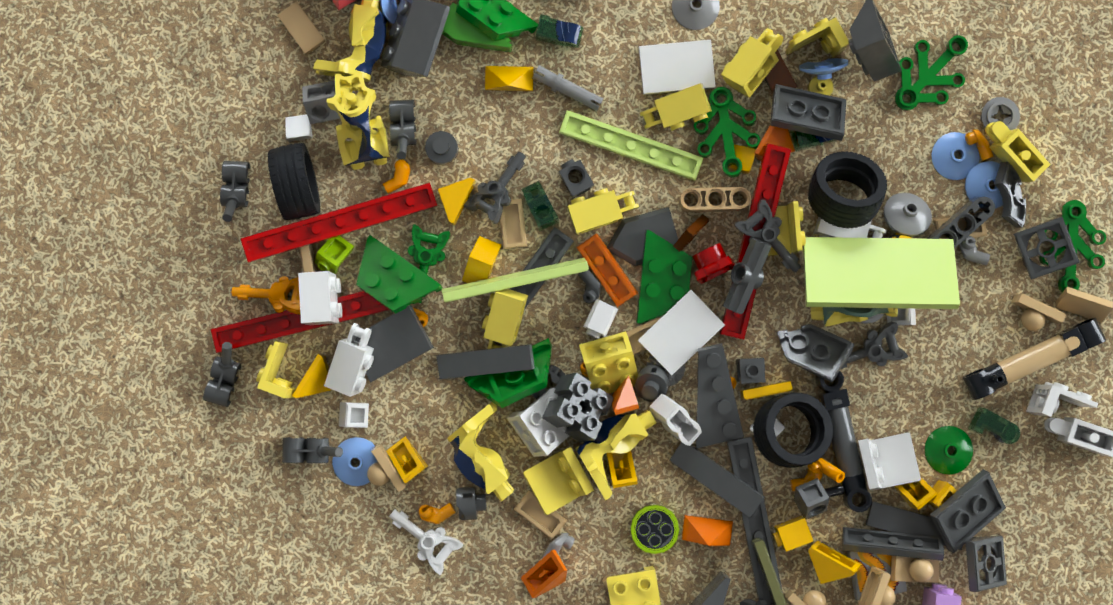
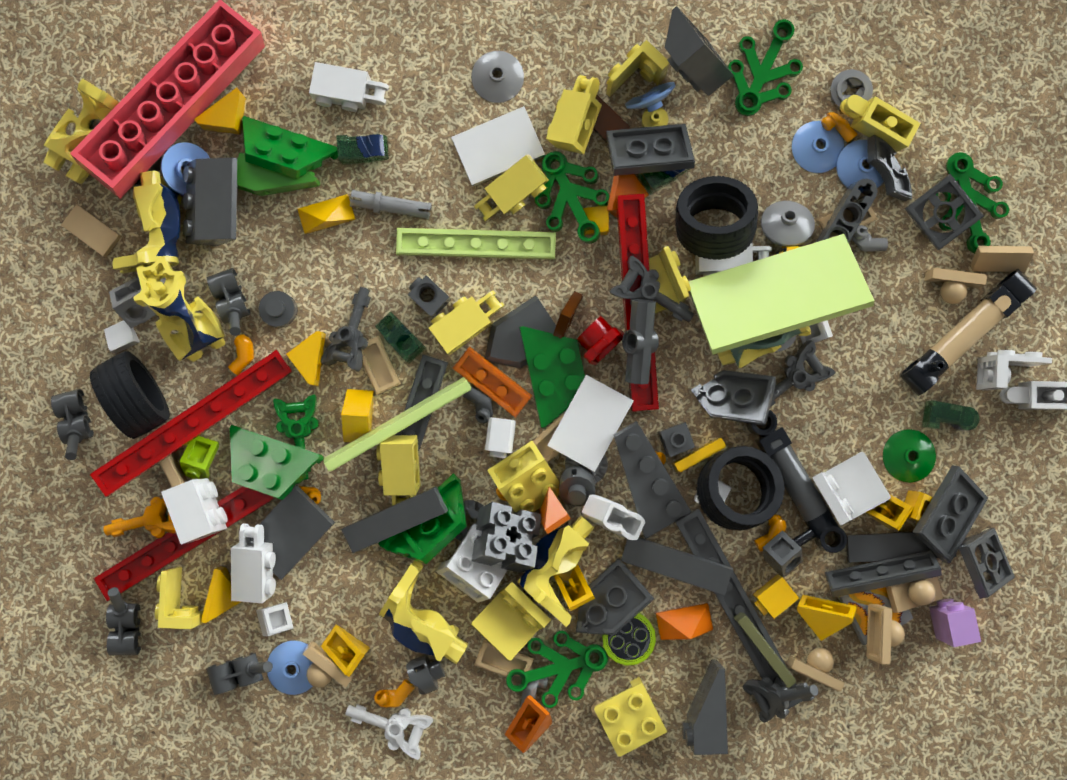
camera: 15 degrees left, 0 degrees up
(589, 535) = (562, 667): none -> green plant
(654, 494) = (616, 602): none -> dark grey tile
(726, 199) = (590, 262): tan beam -> none
(828, 469) = (790, 517): light orange arm -> none

